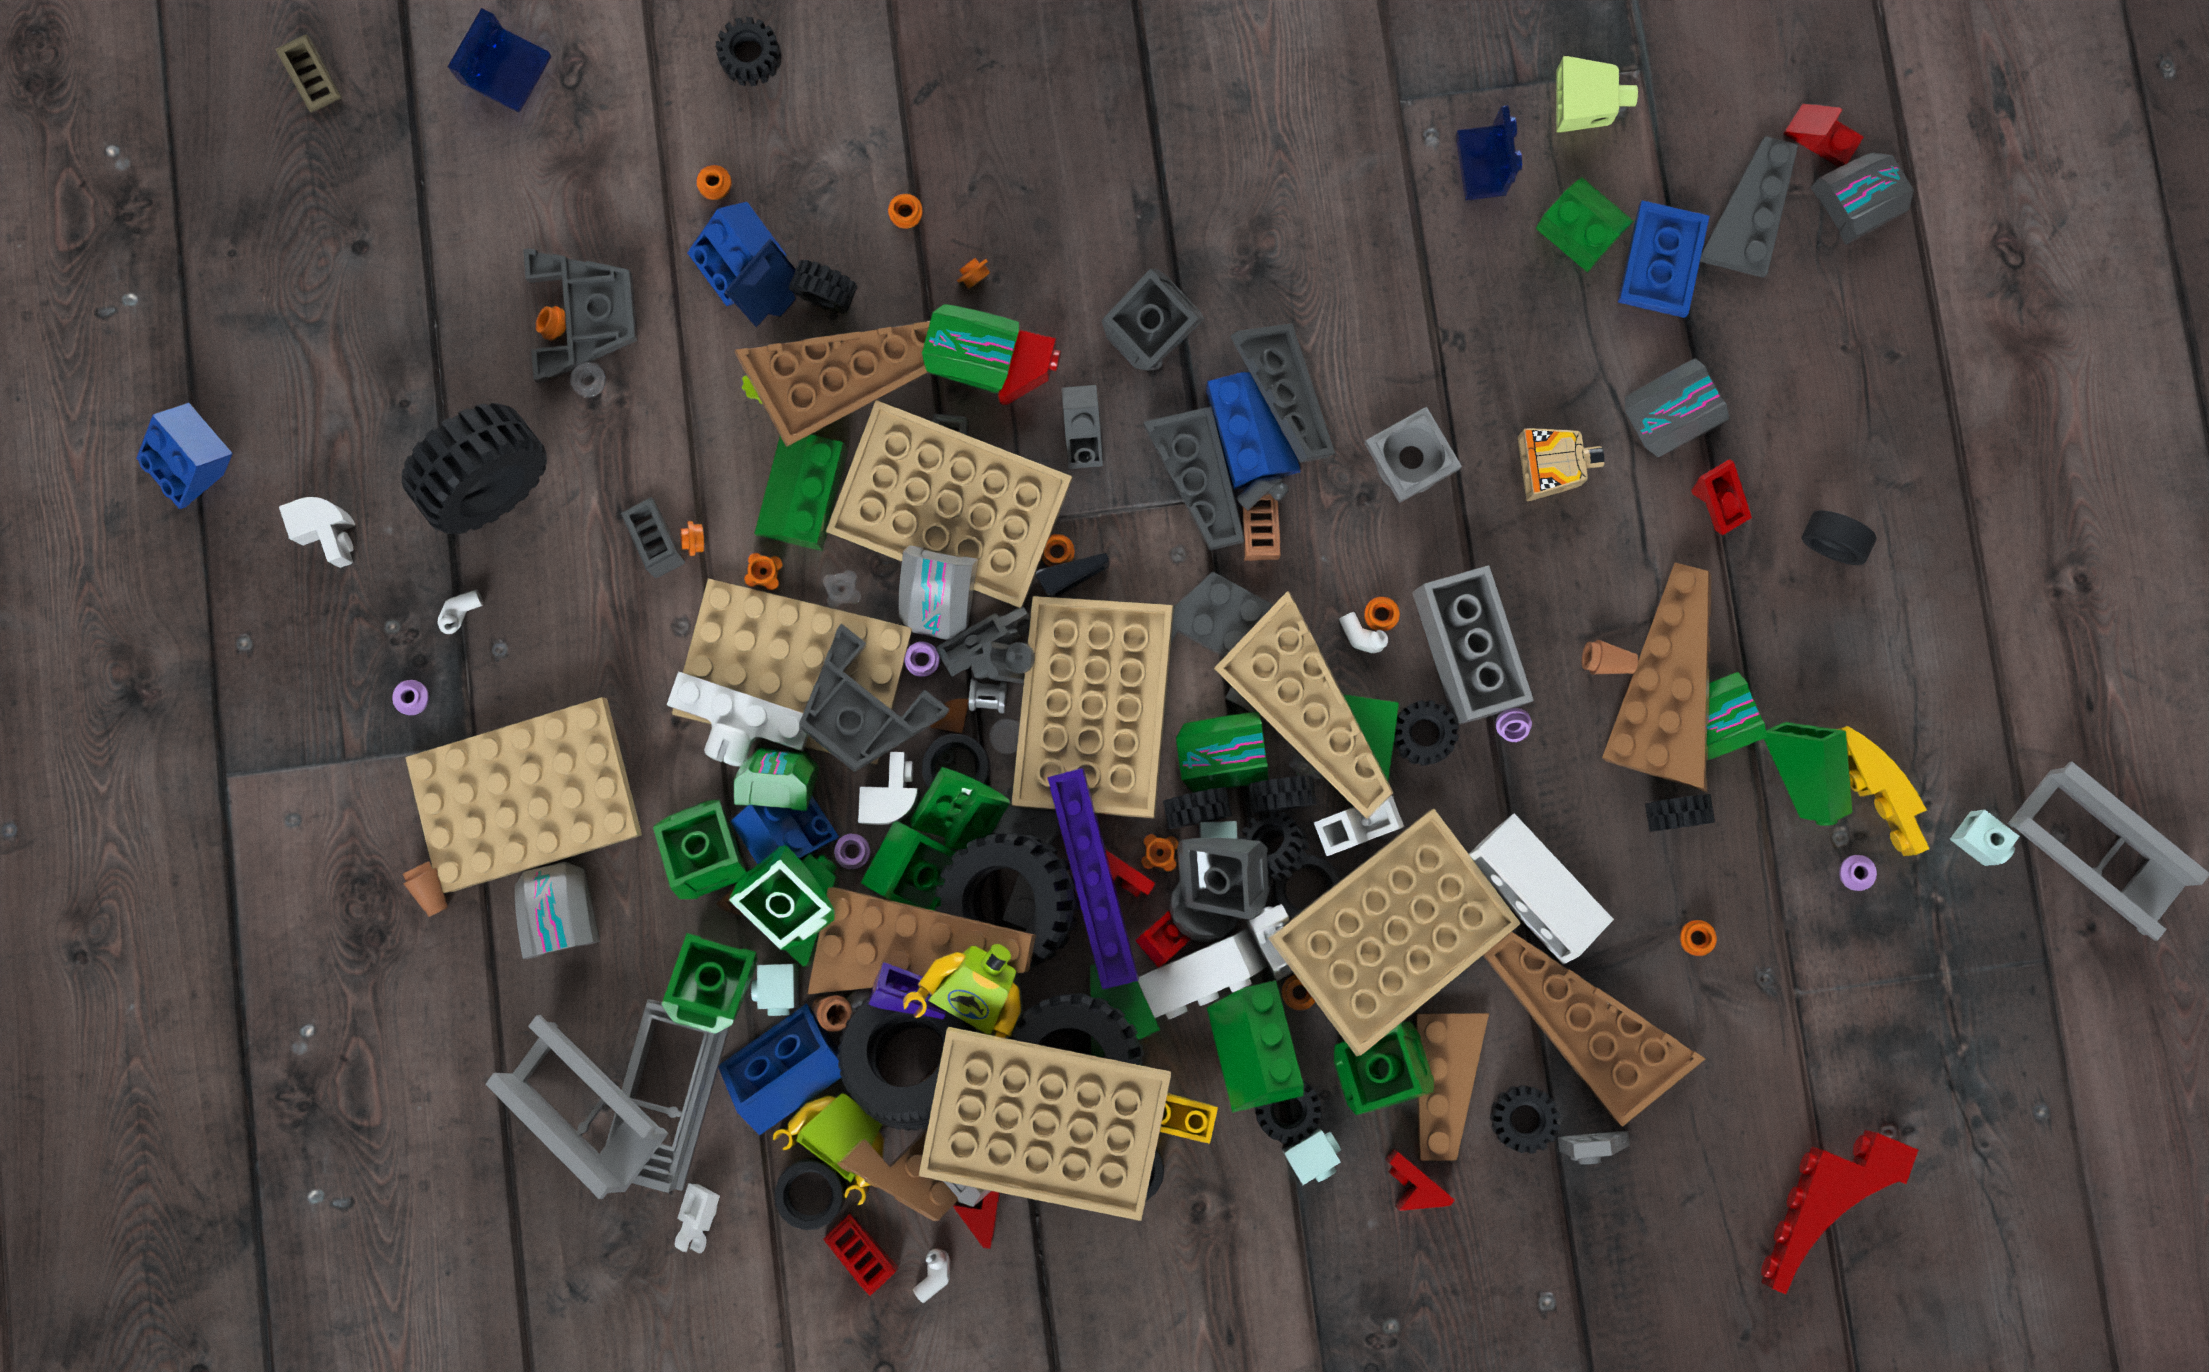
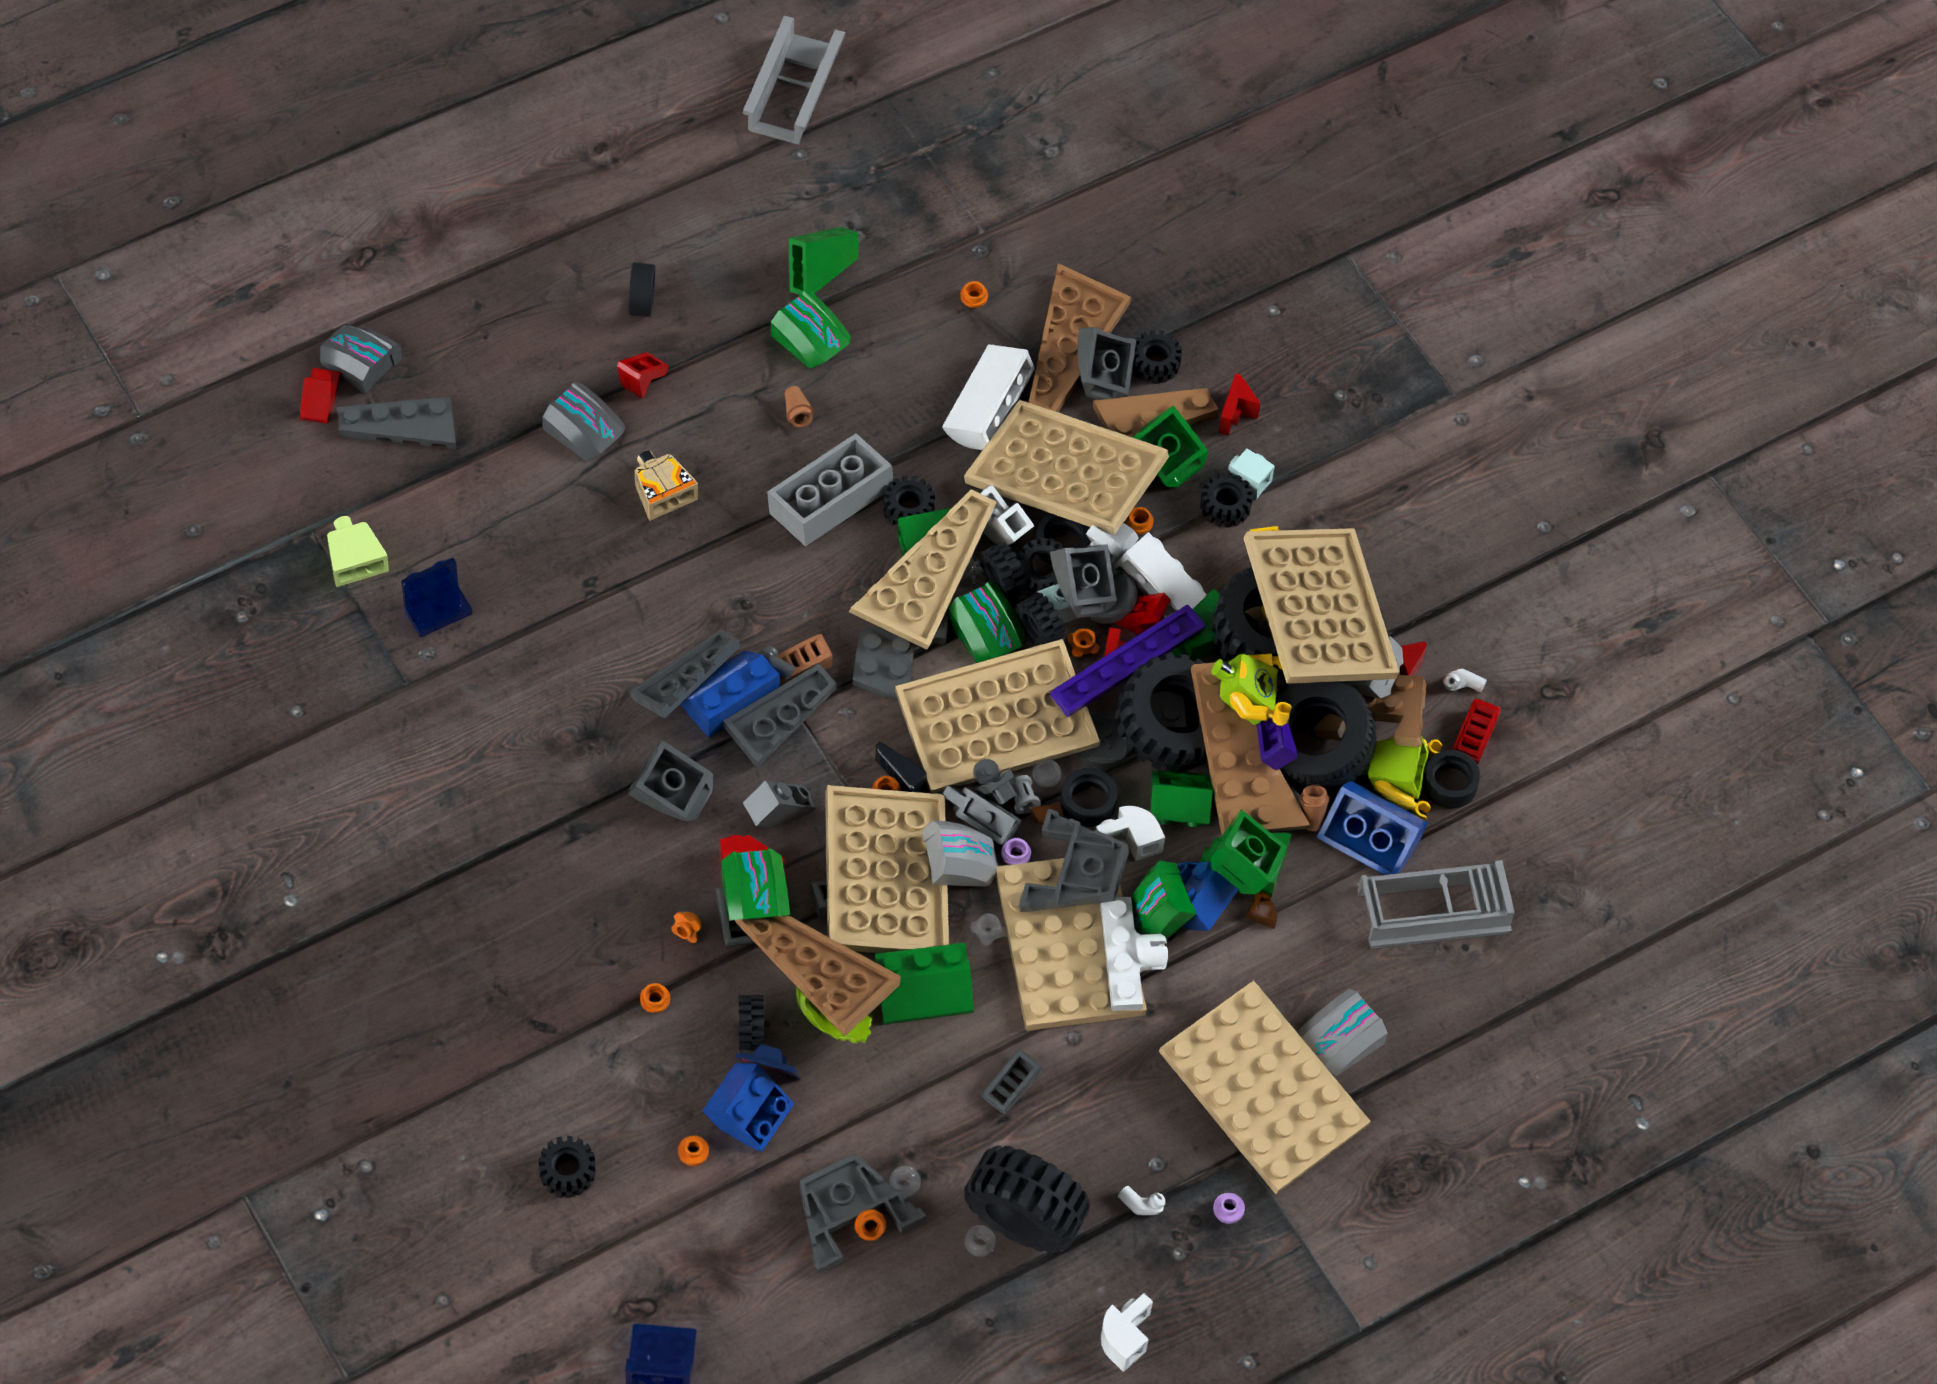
camera: 120 degrees left, 25 degrees down
(426, 888) = (1370, 1133): nougat cone -> none
(627, 1149) = (1492, 895): light grey piece -> none
(692, 538) = (999, 1047): orange plate -> none
(697, 1215) = (1507, 845): white plate -> none
(699, 850) = (1237, 947): green slope -> none
(708, 984) = (1337, 889): green slope -> none
(758, 562) = (1001, 982): orange plate -> none
(776, 988) = (1315, 855): light aqua brick -> none
(841, 851) = (1190, 839): lavender plate -> none
(959, 809) = (1121, 774): green slope -> none
(1255, 1047) = (1196, 523): green slope -> none
(1362, 638) = (856, 567): white arm -> none
(1381, 603) = (831, 553): orange plate -> none
(1417, 431) = (694, 560): light grey piece -> none
(1513, 724) = (878, 445): lavender plate -> none
(1531, 1046) = (1105, 363): none -> dark grey slope
(1583, 224) = (462, 523): green slope -> none
(1591, 1147) = (1154, 307): light grey wing -> none
(1663, 259) = (468, 465): blue plate -> none
(1667, 700) = (816, 358): medium nougat wing -> none
(1680, 812) = (892, 325): black tyre -> none
(1825, 1192) = (1115, 172): red arch -> none
(1847, 875) = (879, 222): lavender plate -> none
(1896, 798) = (813, 209): yellow slope -> none
(1985, 838) = (818, 150): light aqua brick -> none

